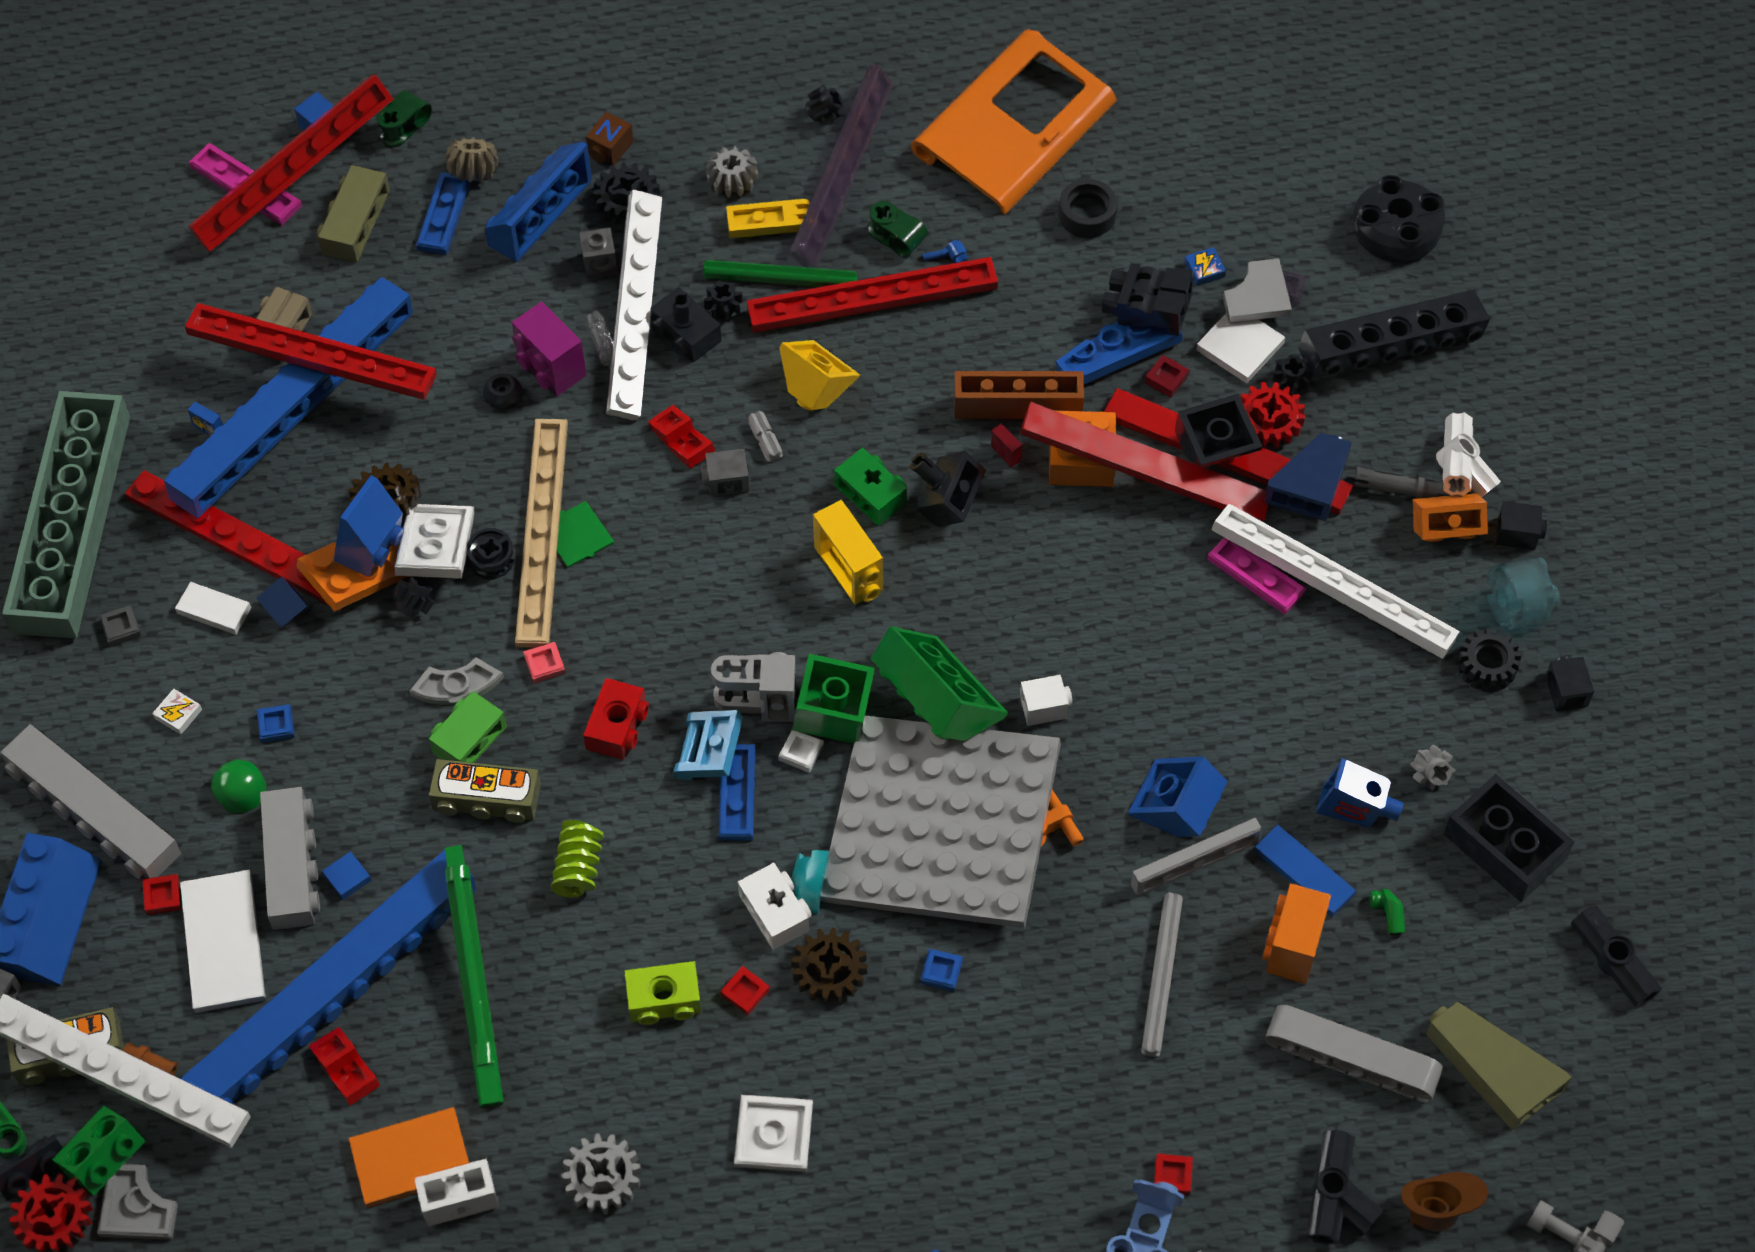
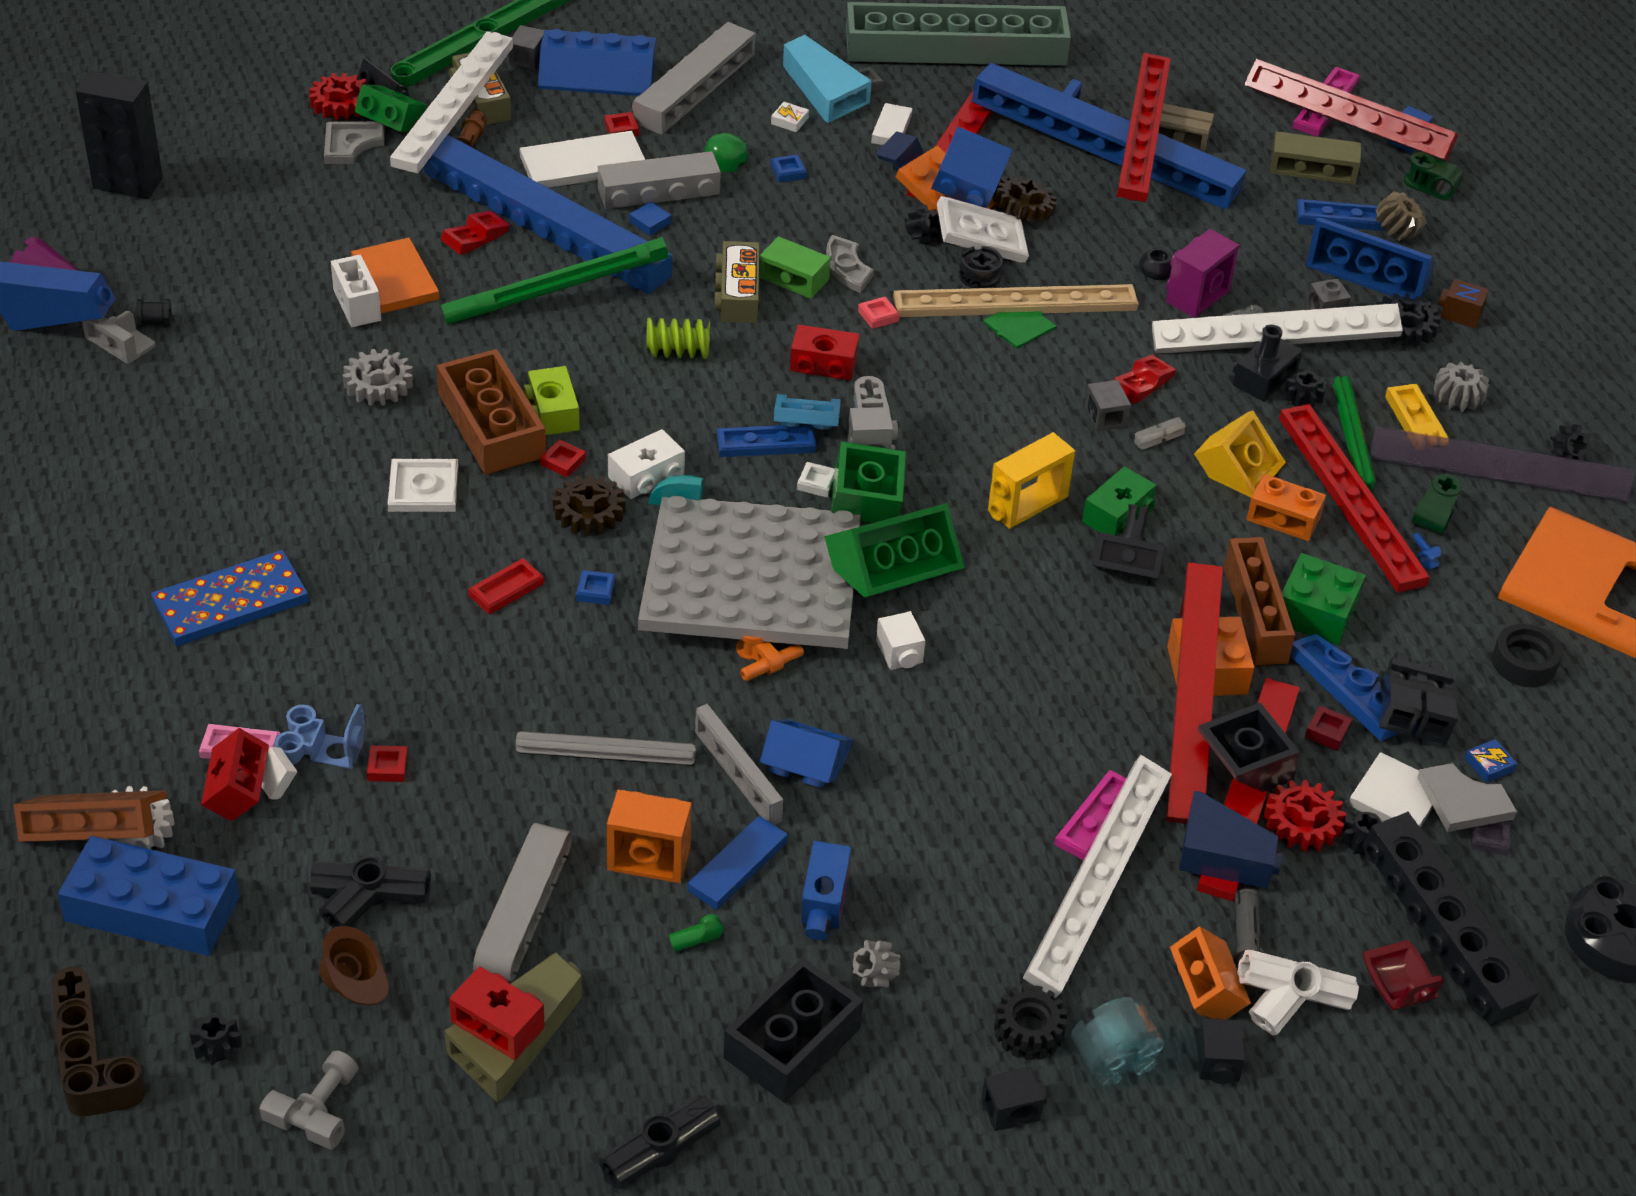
camera: 80 degrees right, 15 degrees down
(118, 665) = (825, 79): none -> medium azure slope
(683, 1052) = (491, 411): none -> dark orange brick
(887, 349) = (1286, 507): none -> orange brick
(933, 1055) = (506, 586): none -> red tile
(1014, 342) = (1322, 597): none -> green brick
(1449, 381) = (1401, 975): none -> dark red piece
(1508, 1084) = (497, 1012): none -> red brick

